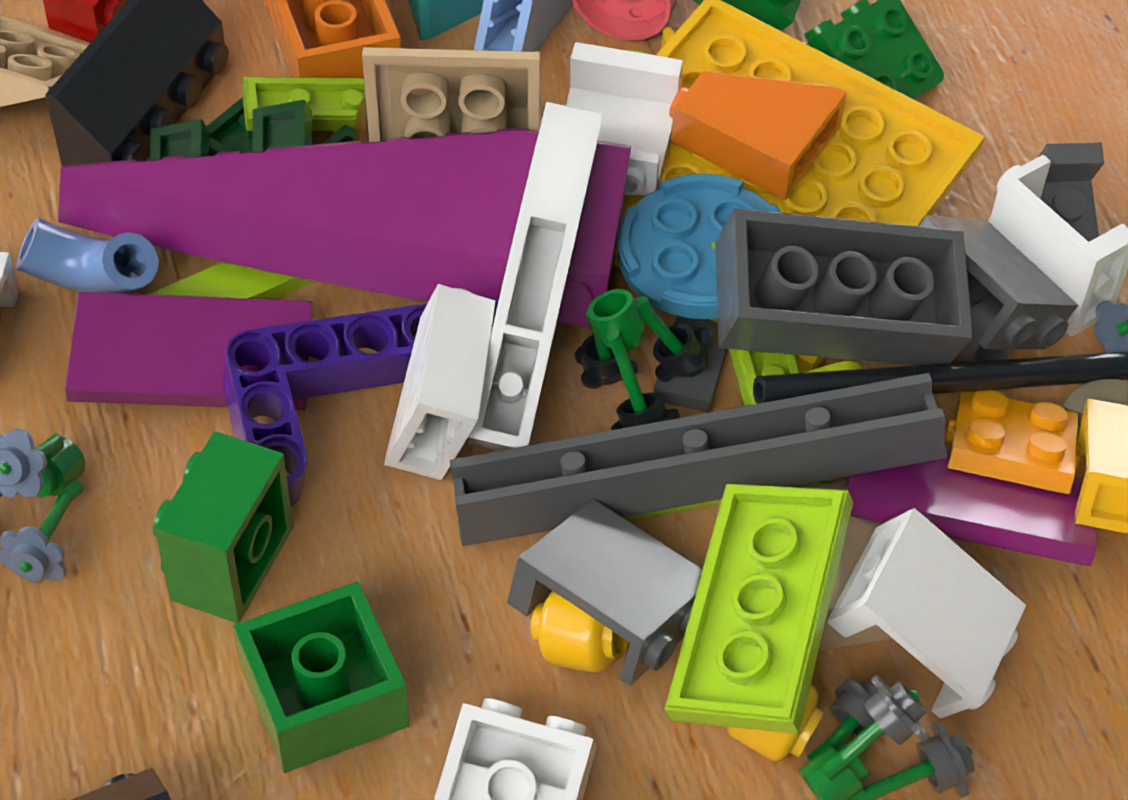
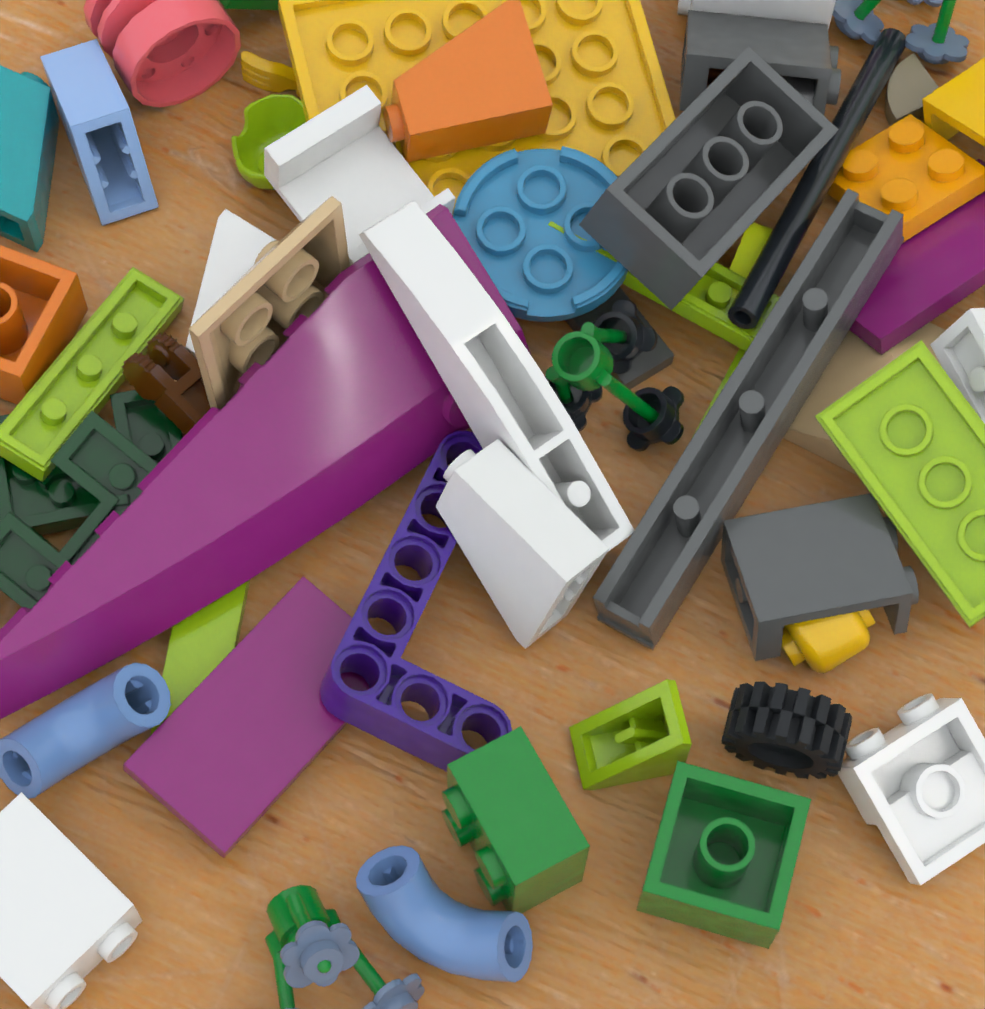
camera: 50 degrees left, 15 degrees up
(116, 541) = (438, 928): none -> medium blue cylinder
(383, 564) = (632, 739): none -> lime slope
(460, 648) = (787, 730): none -> black tyre

